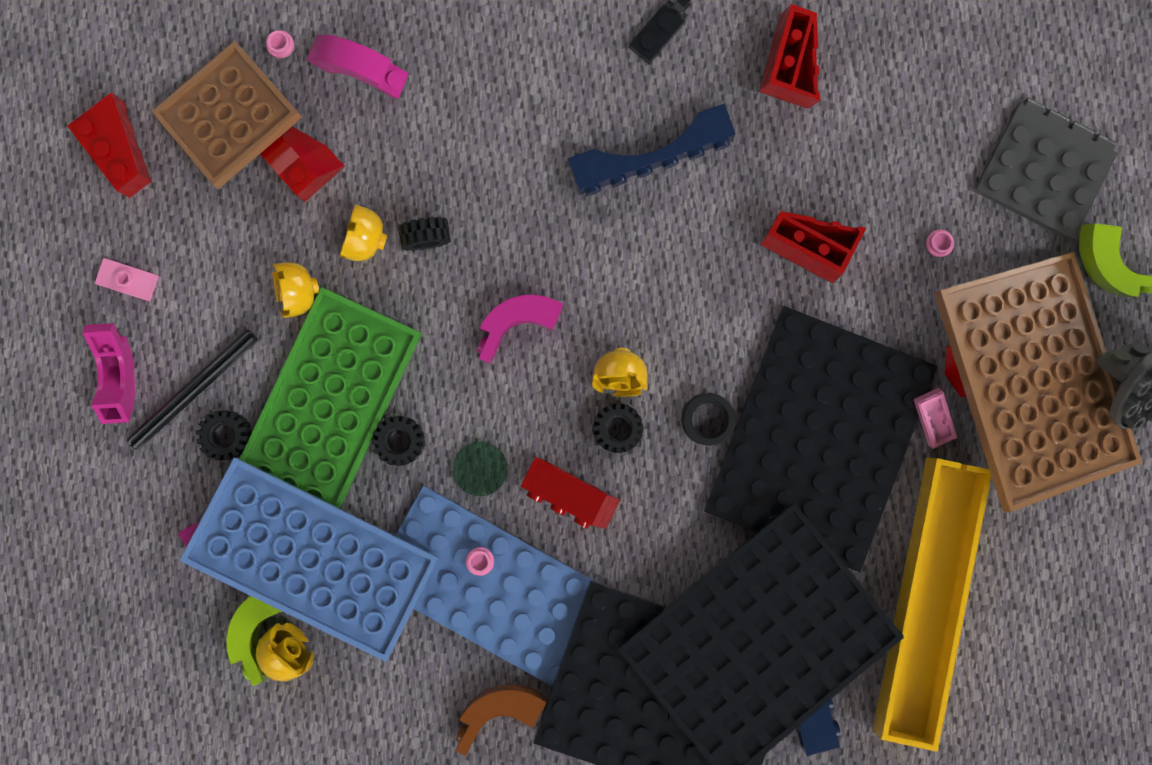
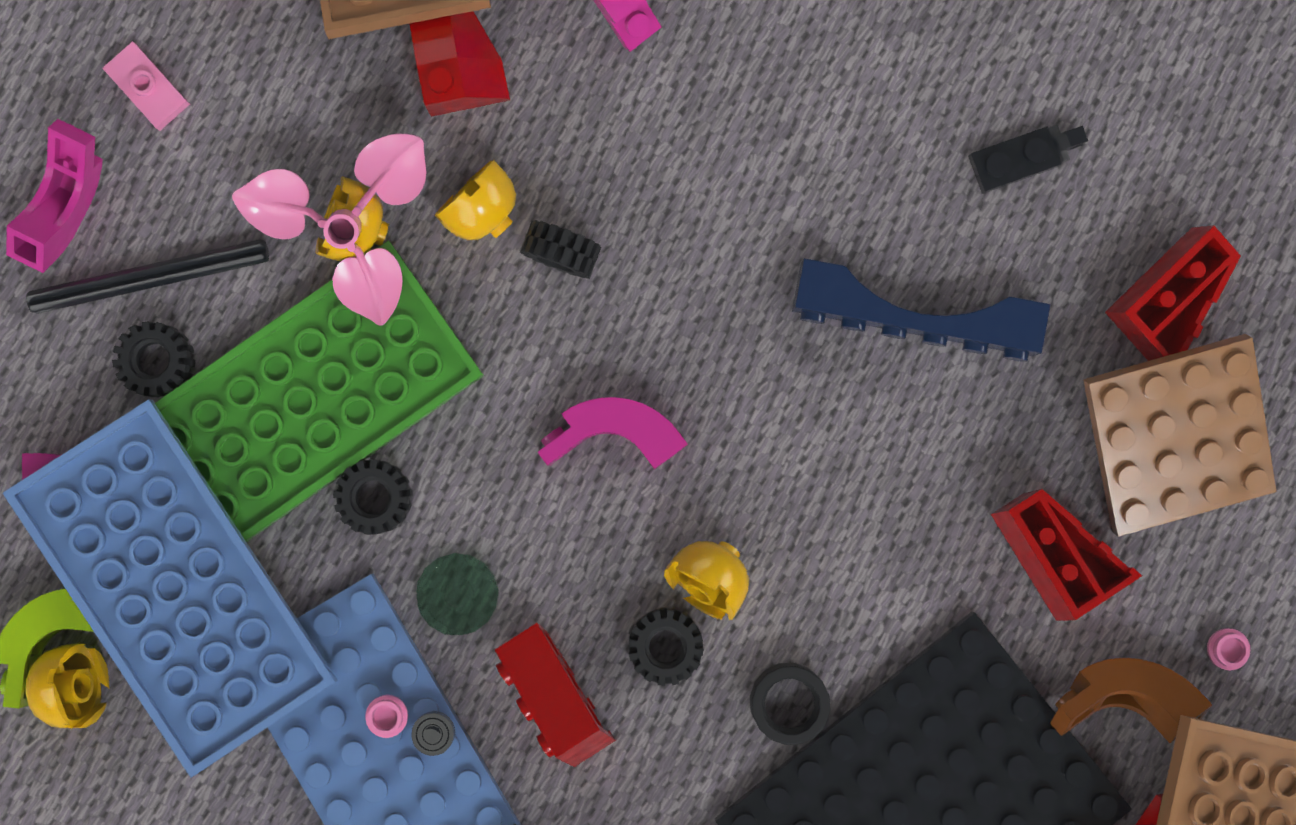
camera: 35 degrees right, 0 degrees up
(301, 243) = (363, 283): none -> bright pink plant
(512, 555) = (433, 733): none -> dark grey tile
(842, 135) = (1181, 435): none -> medium nougat plate
(897, 294) = (1134, 685): none -> dark orange arch

